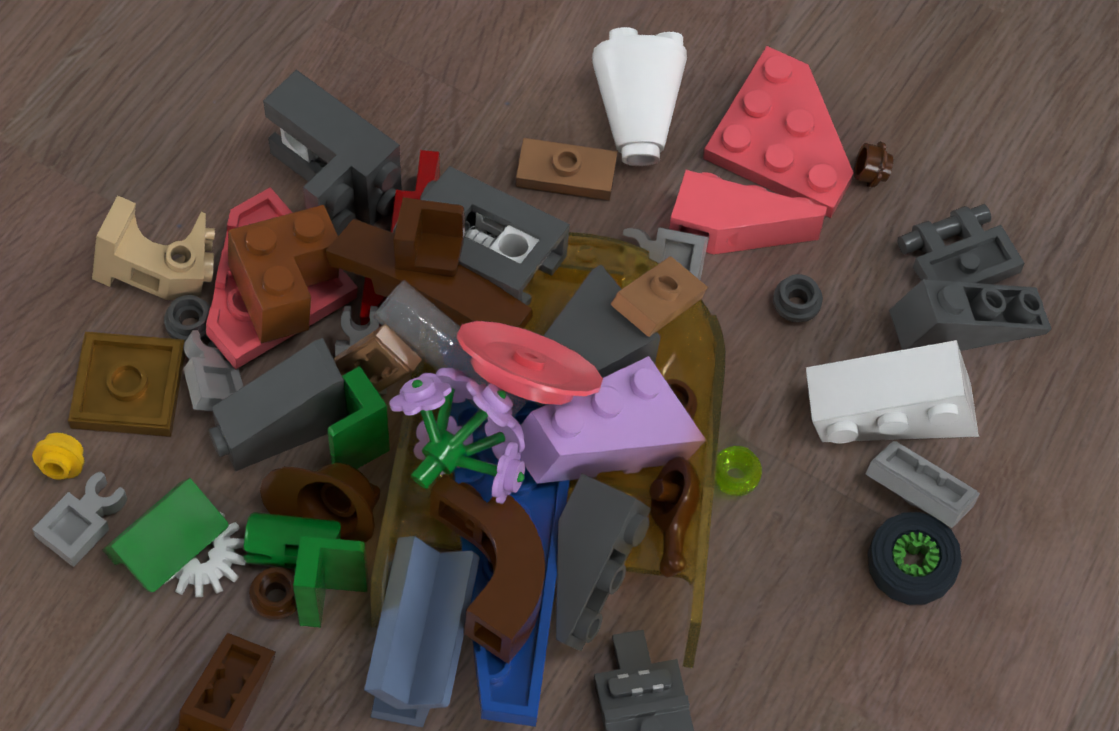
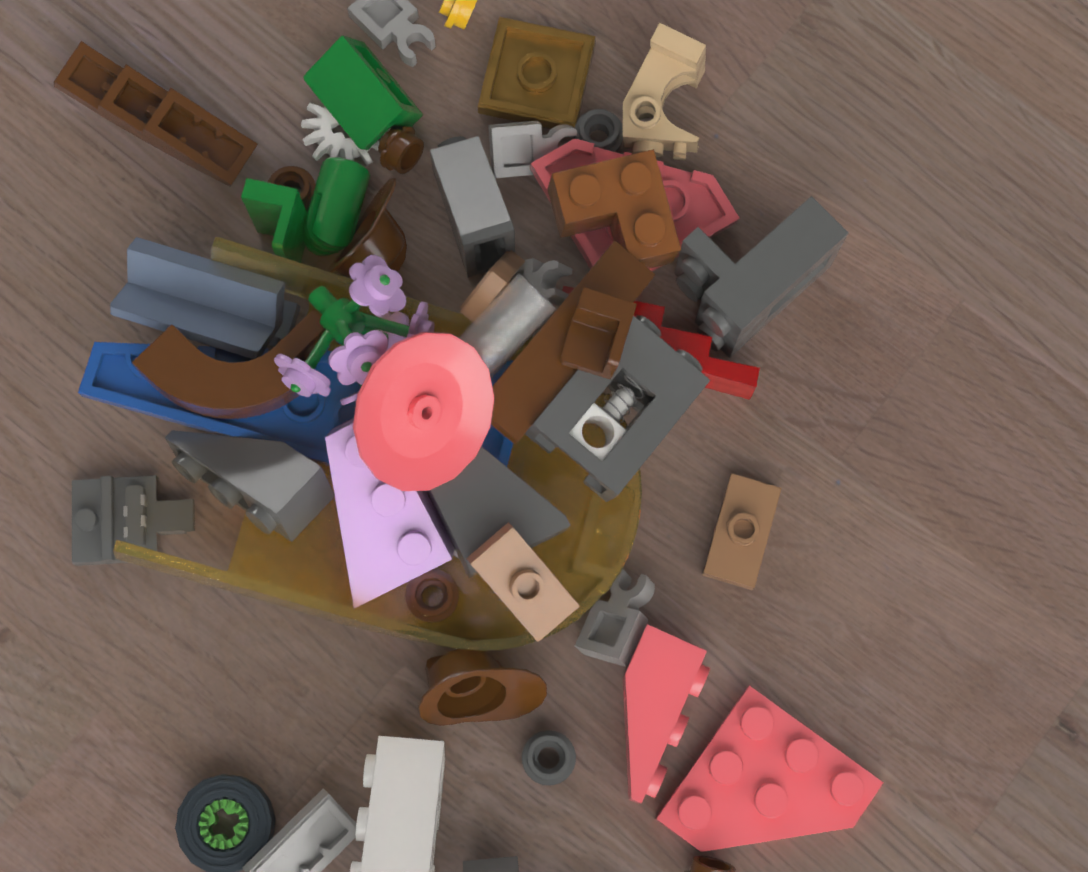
camera: 100 degrees right, 15 degrees up
(223, 493) = (400, 149): none -> reddish brown plate
(365, 430) = (444, 279): green panel -> none
(639, 89) = (819, 618): white cone -> none
(673, 506) = (294, 569): reddish brown piece -> none
(740, 458) = (346, 638): clear neon green plate -> none
(749, 357) = (477, 689): none -> reddish brown piece

